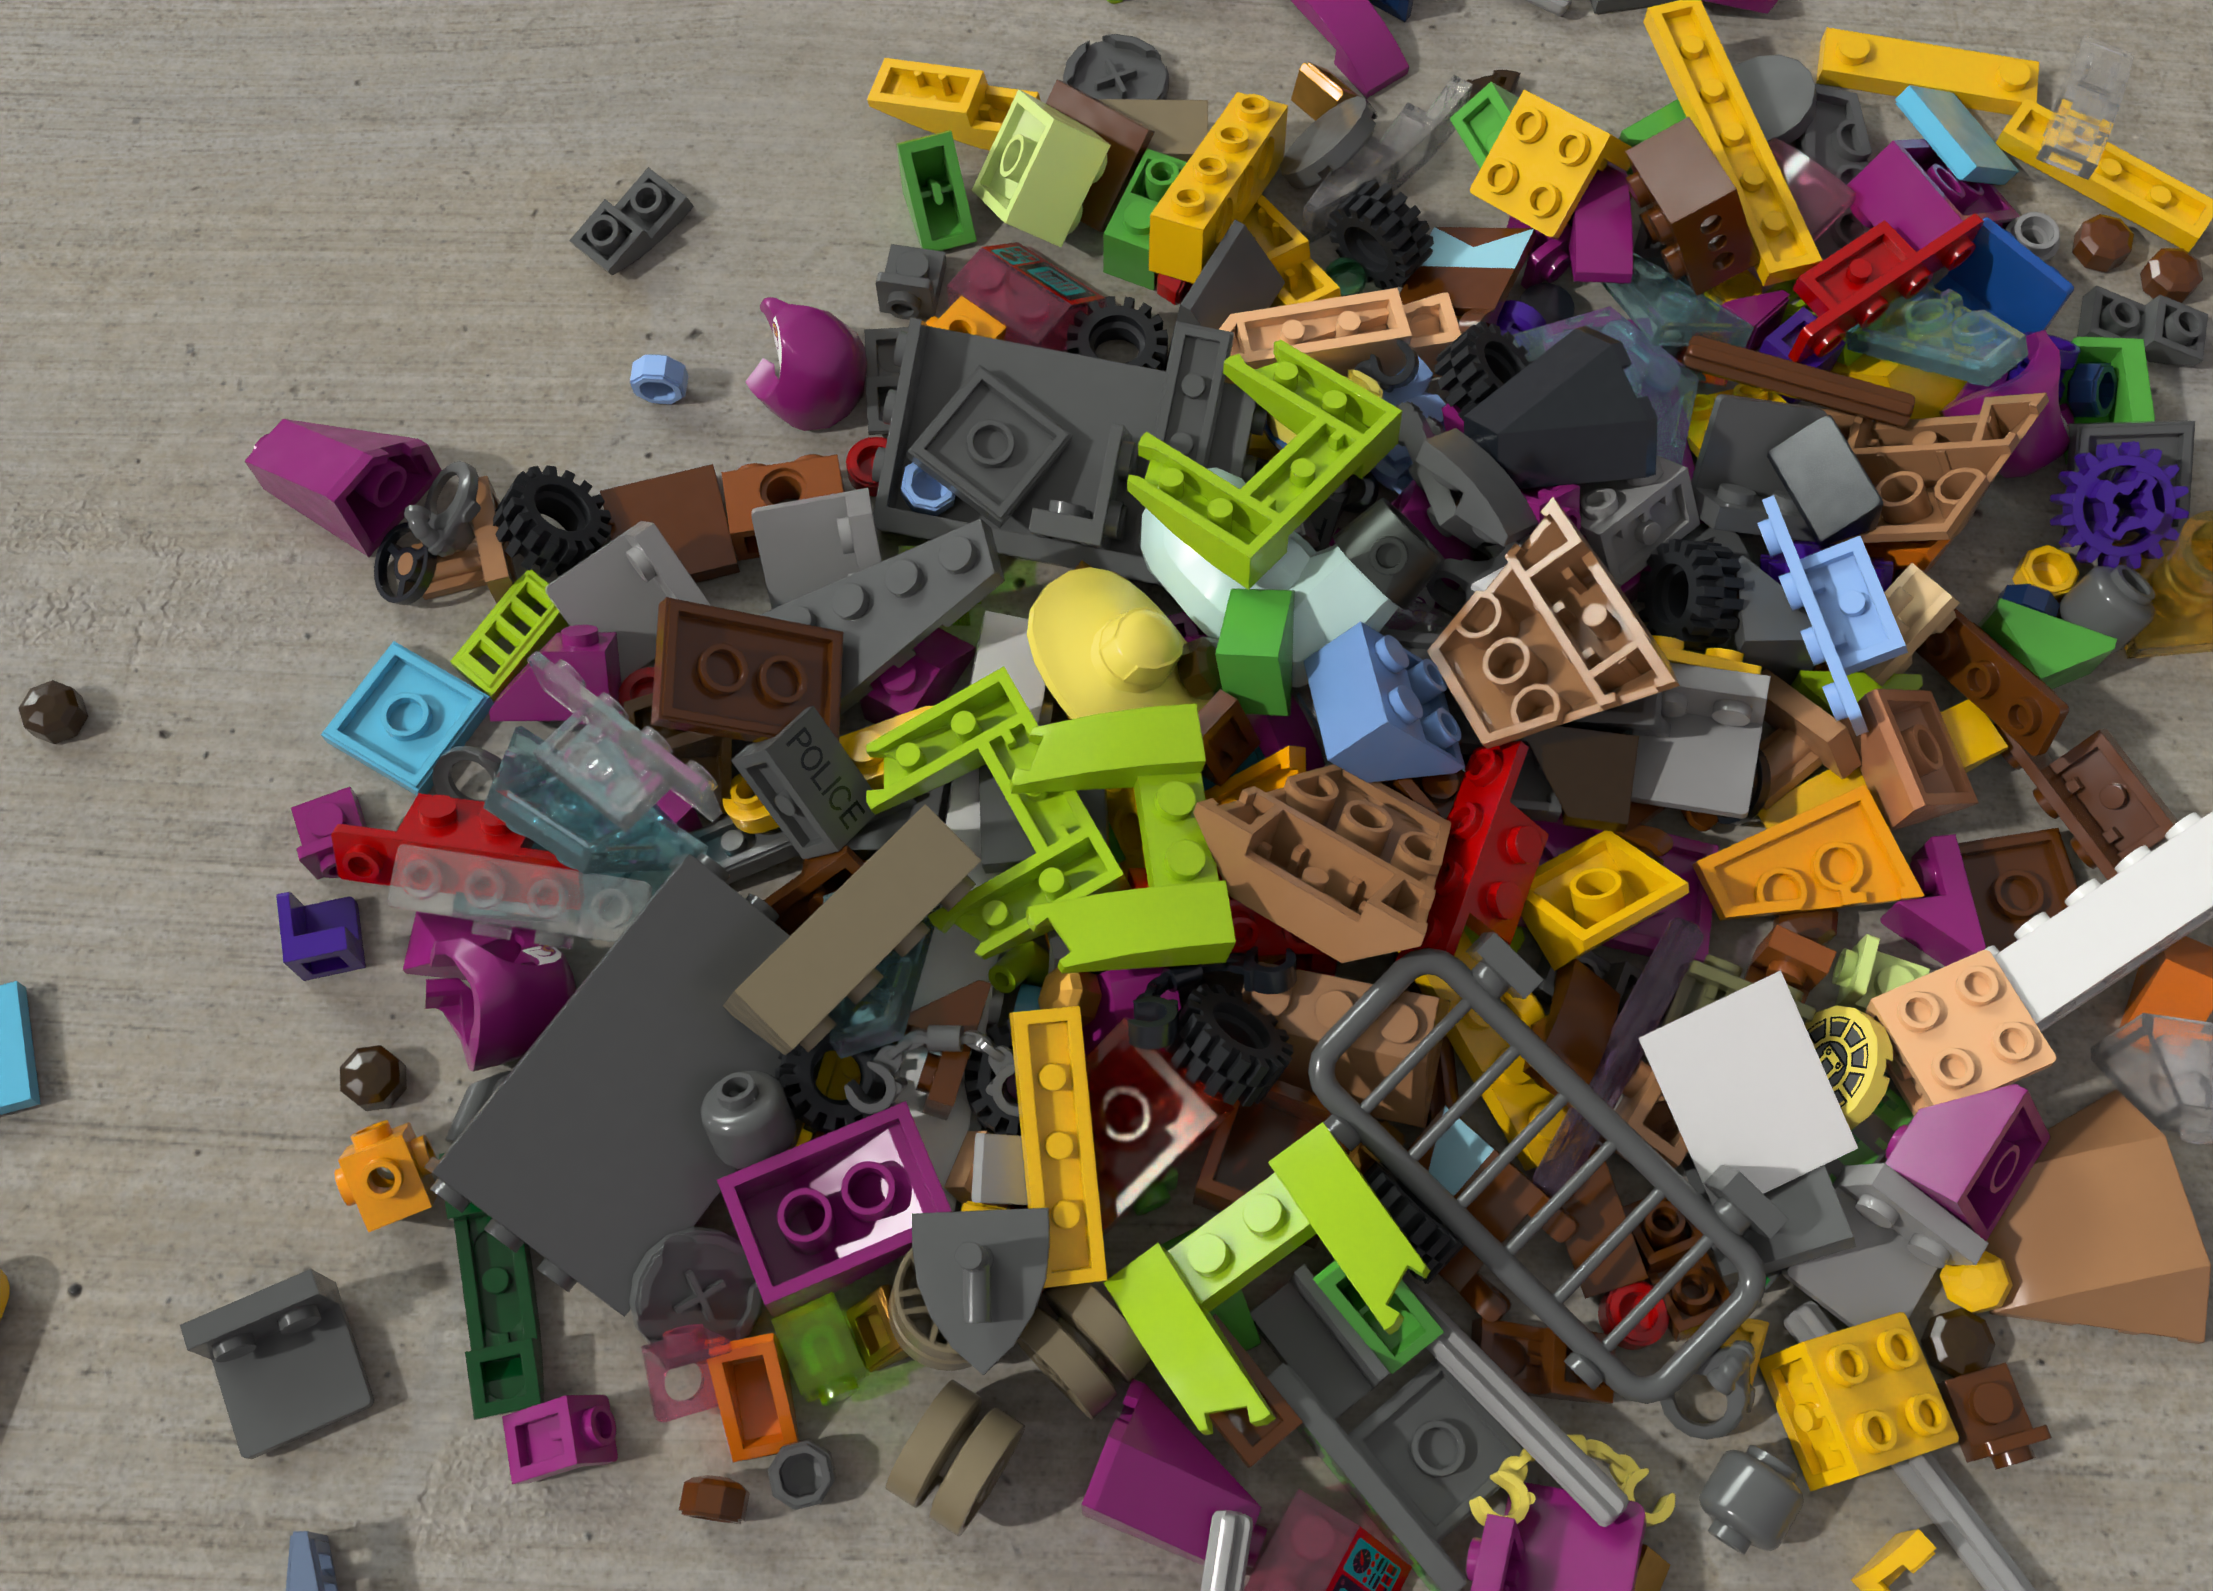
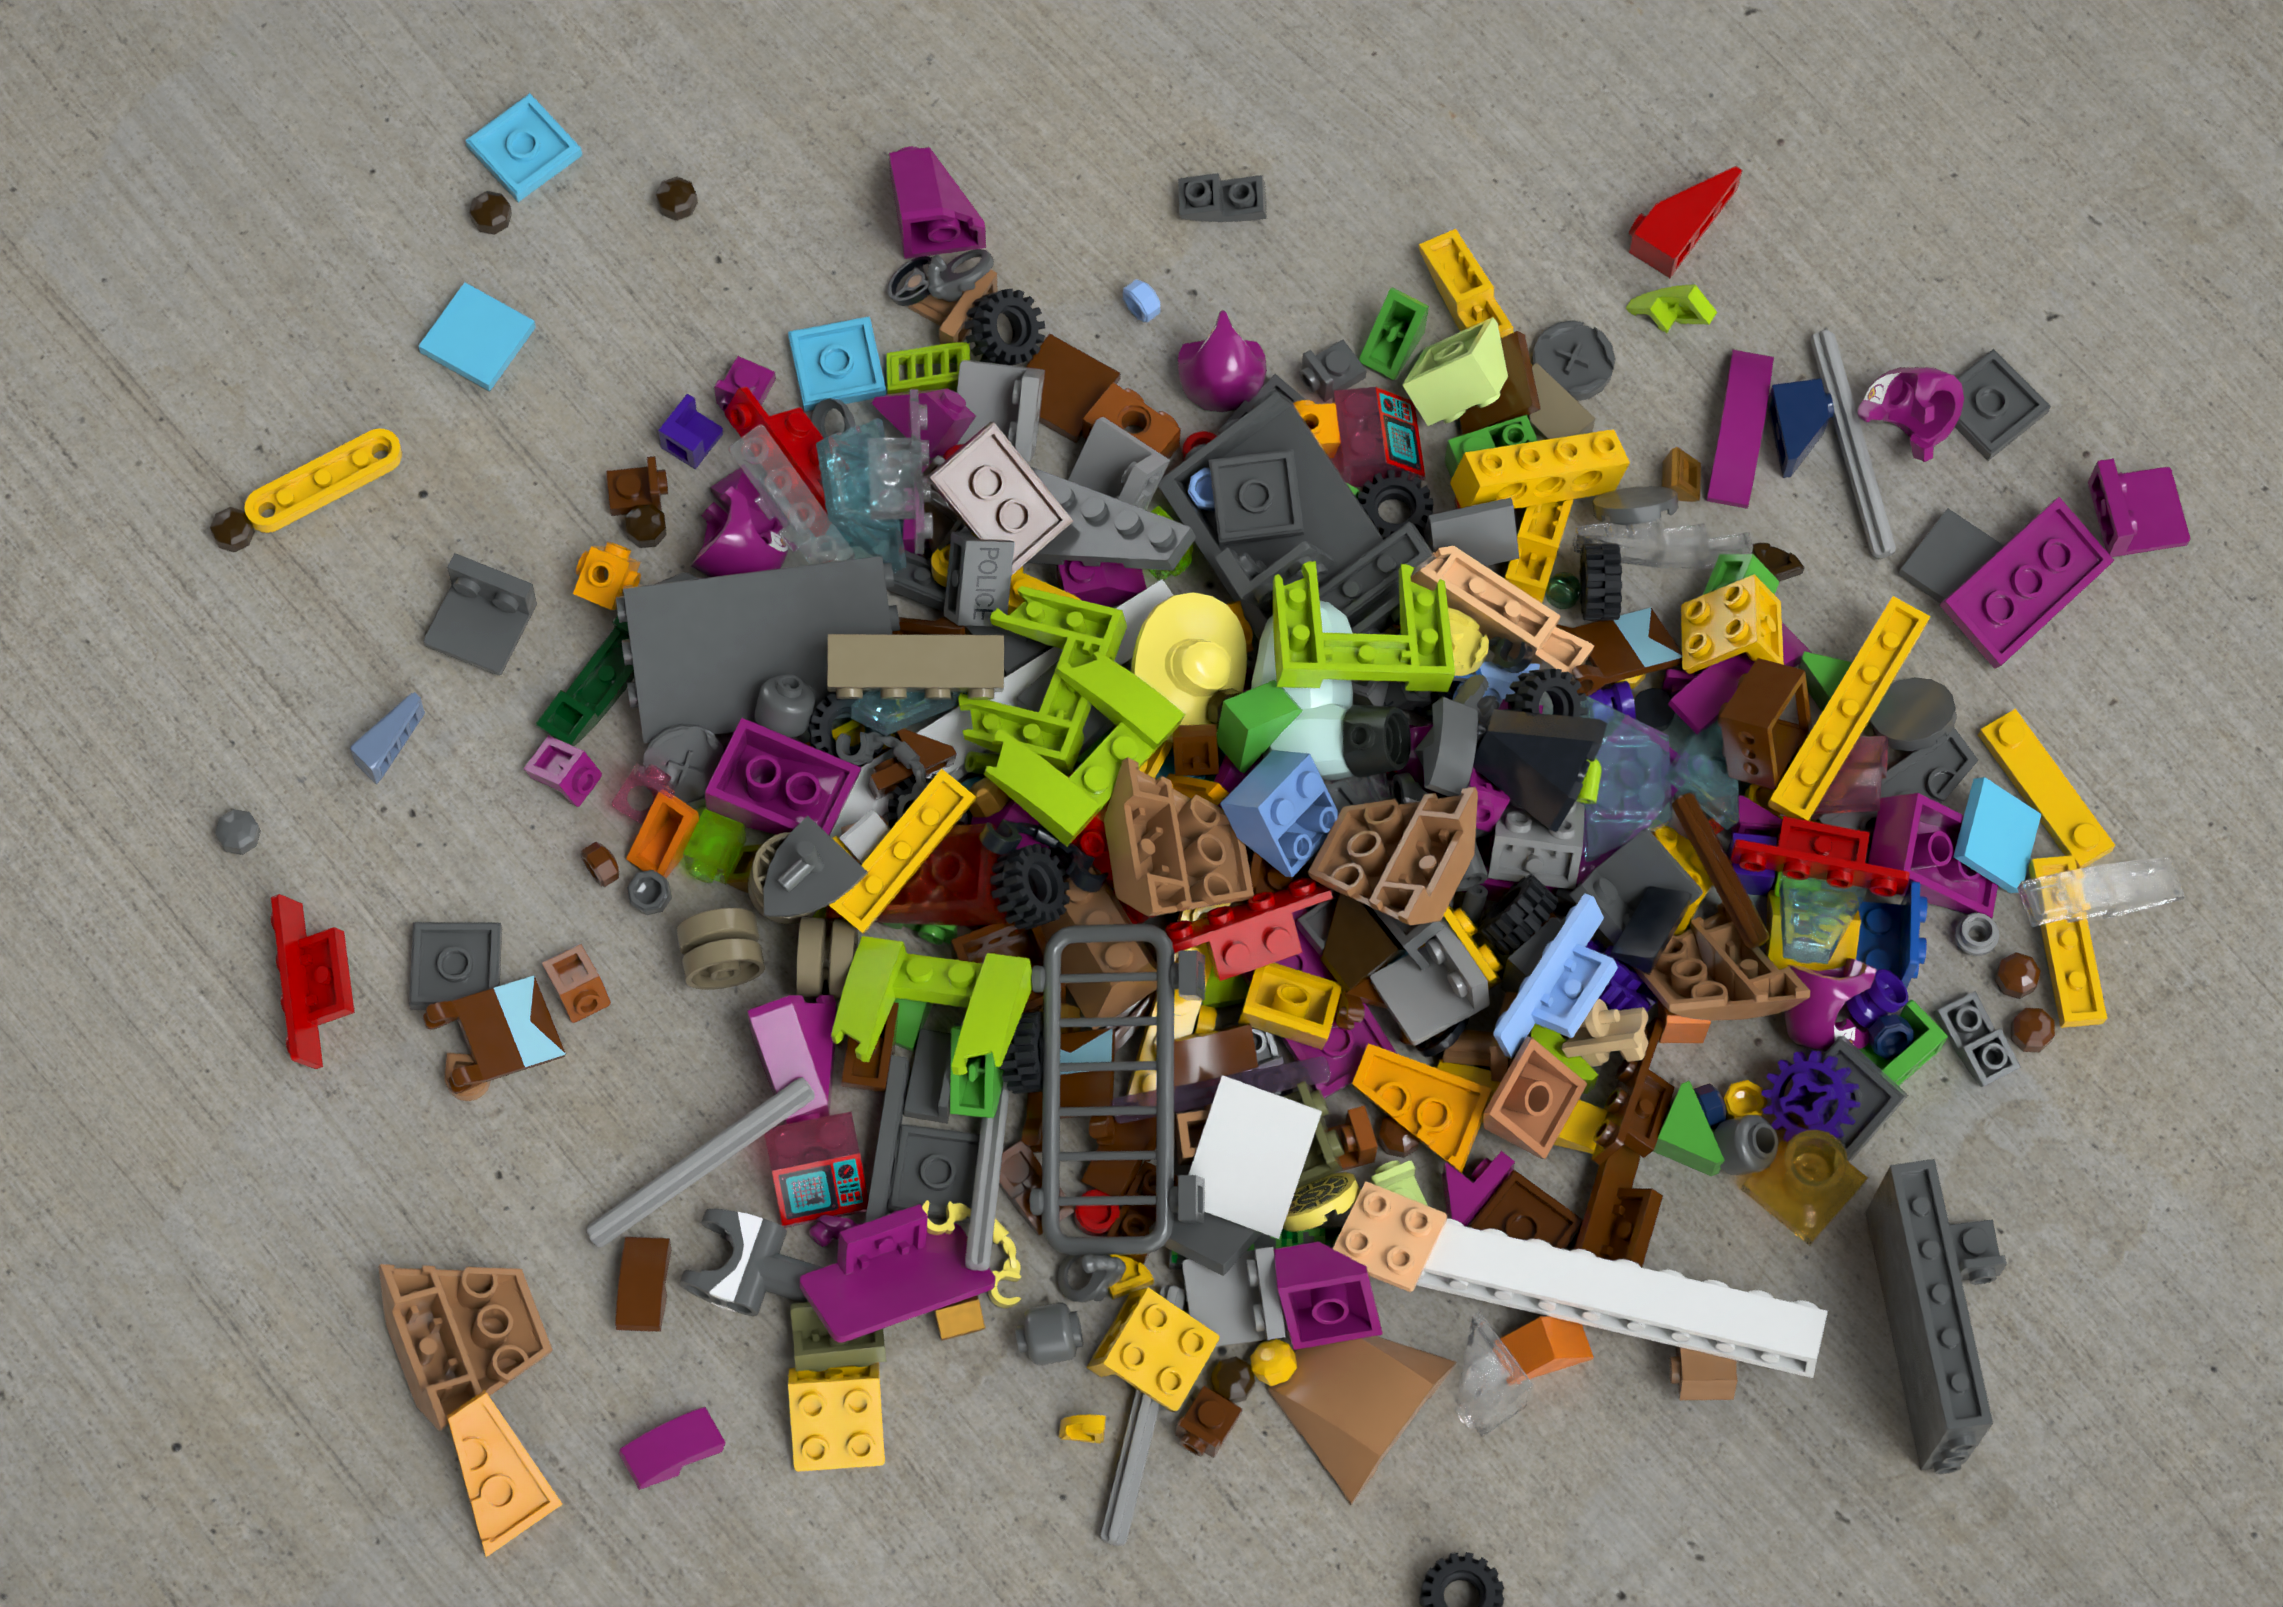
camera: 45 degrees right, 0 degrees up
(320, 1047) = (636, 487): none -> reddish brown bracket

